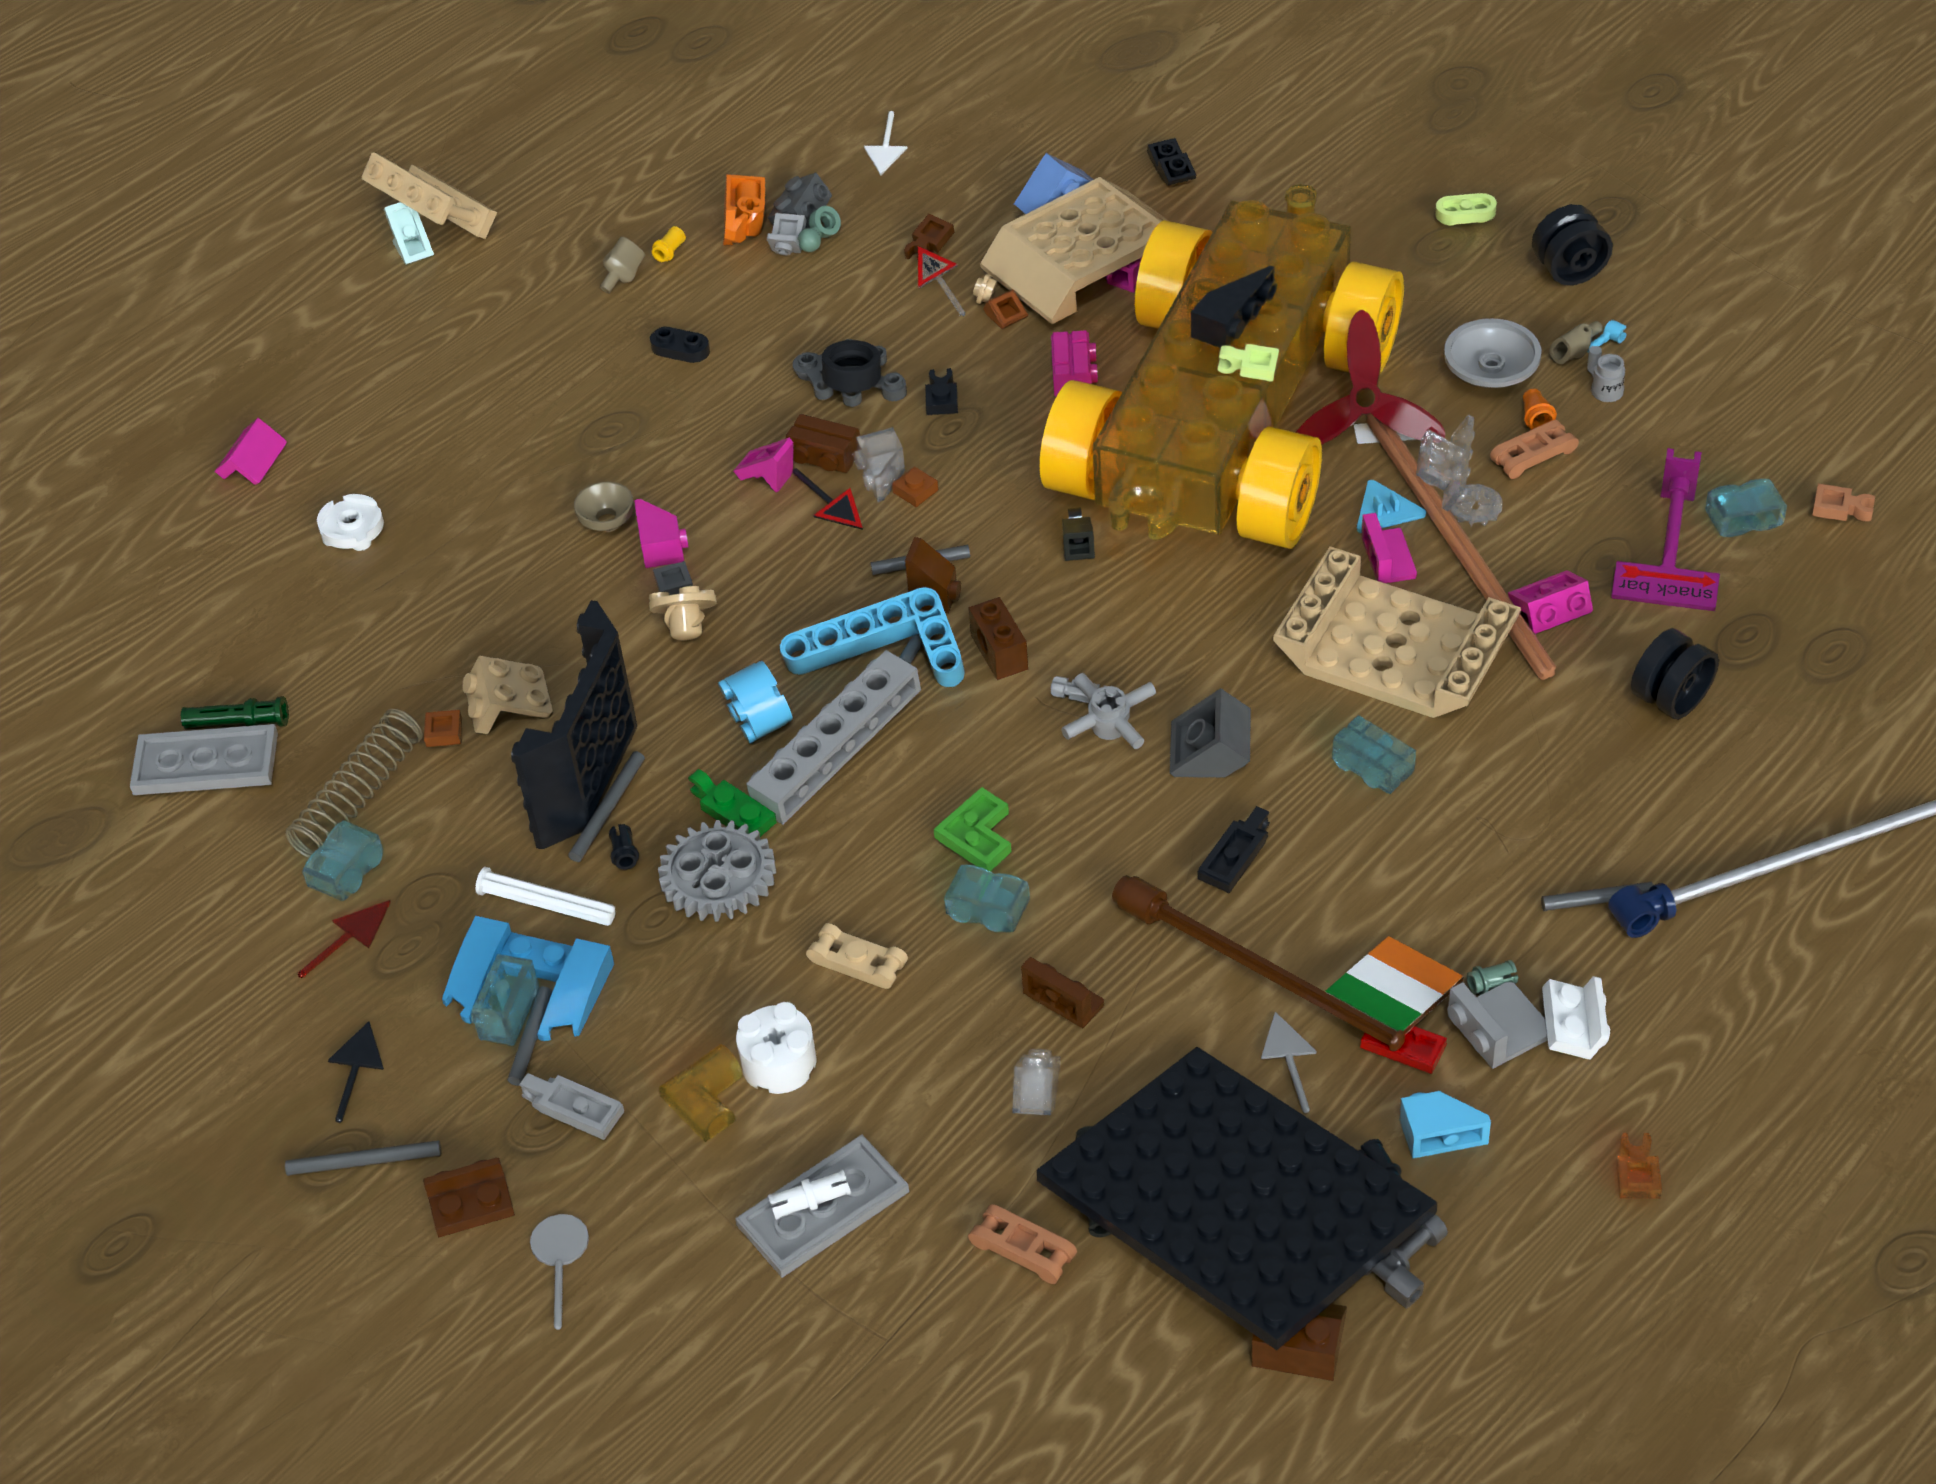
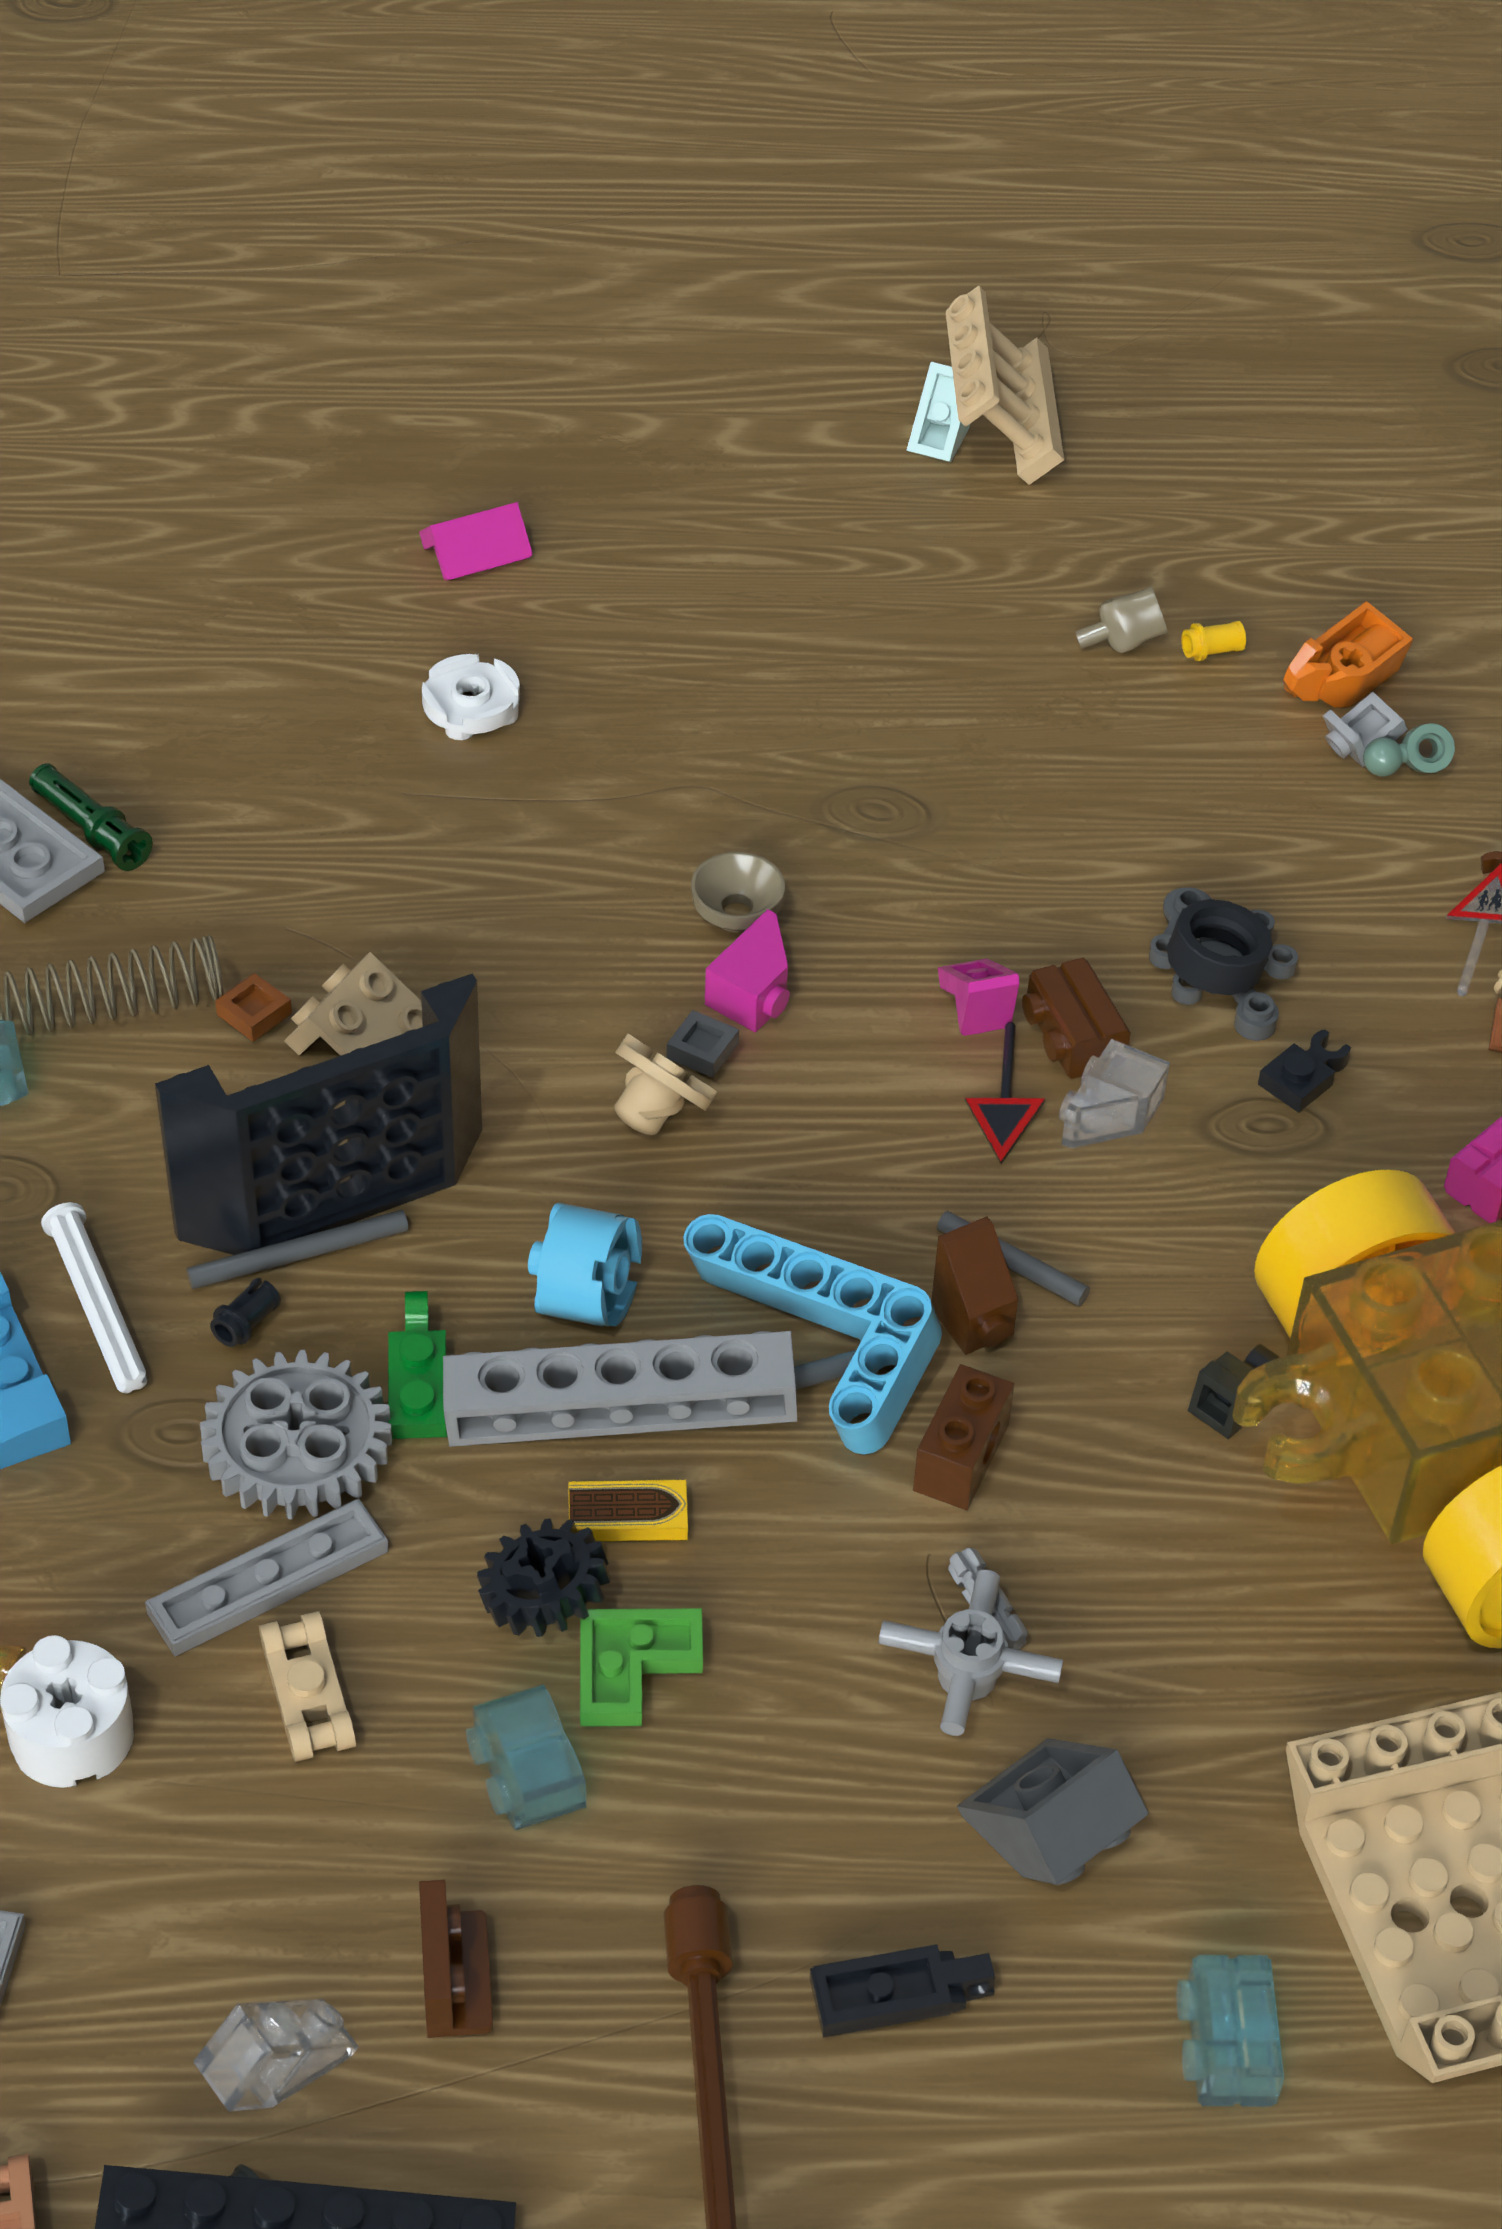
camera: 40 degrees right, 0 degrees up
(679, 344) = (1077, 769): black plate -> none
(779, 935) = (266, 1577): none -> light grey tile
(802, 197) = (1443, 698): dark grey bracket -> none
(895, 782) = (630, 1509): none -> tile
(902, 830) = (543, 1577): none -> black gear
(915, 486) = (1124, 1161): dark orange plate -> none

